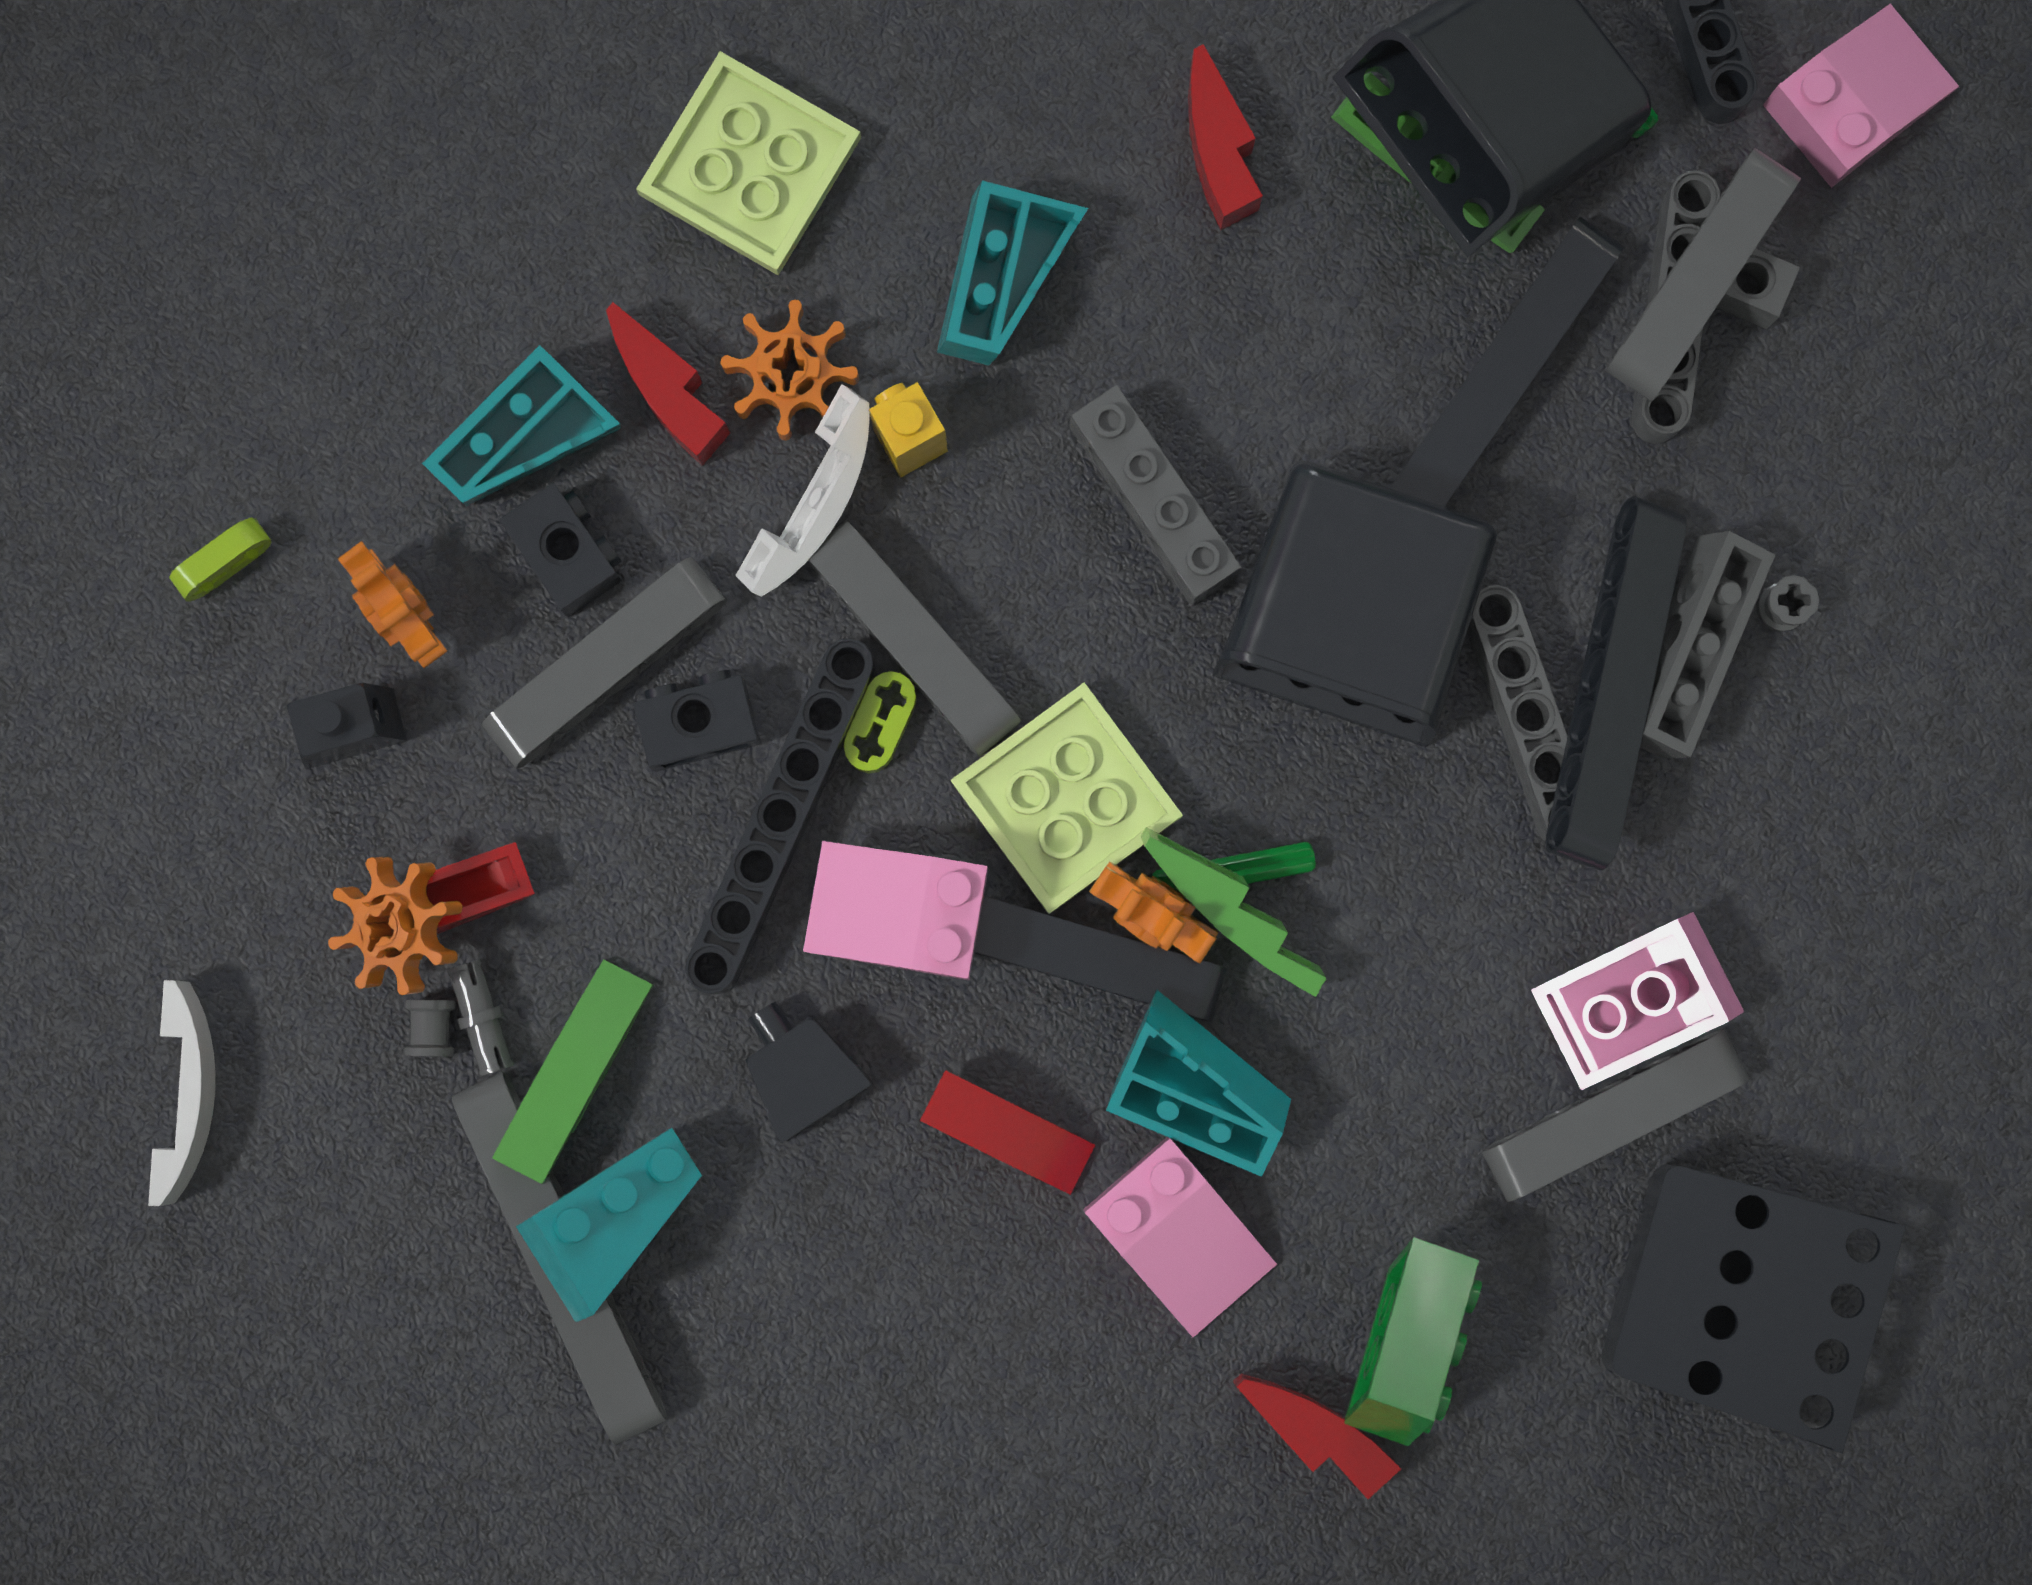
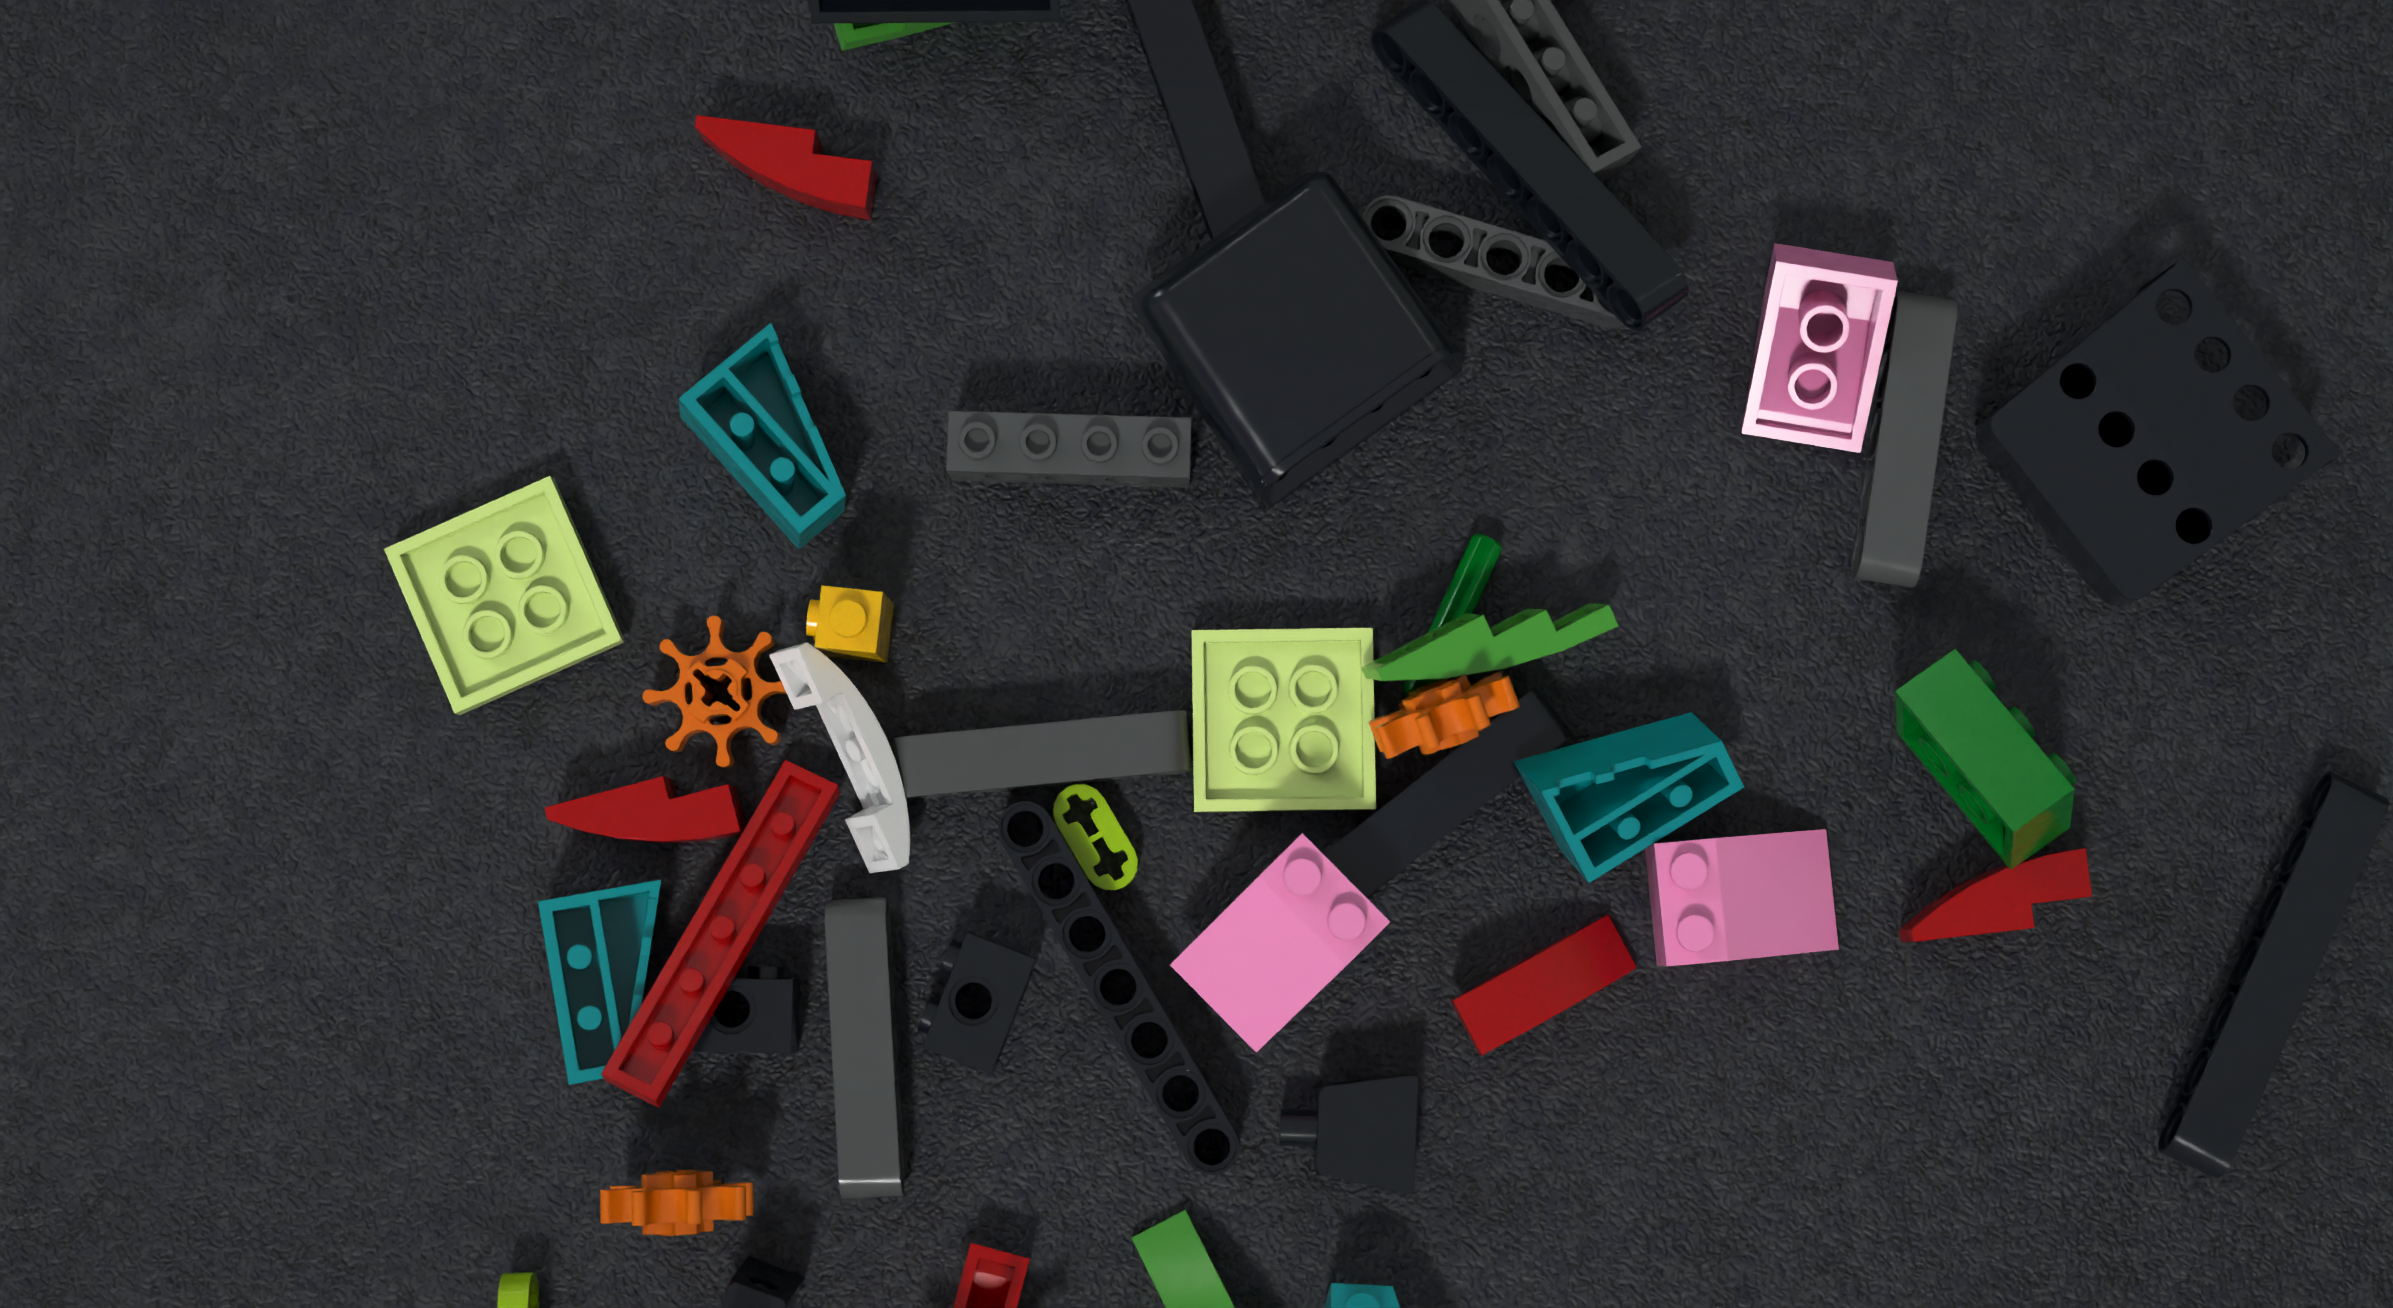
camera: 55 degrees left, 0 degrees up
(611, 495) = (721, 934): none -> red plate

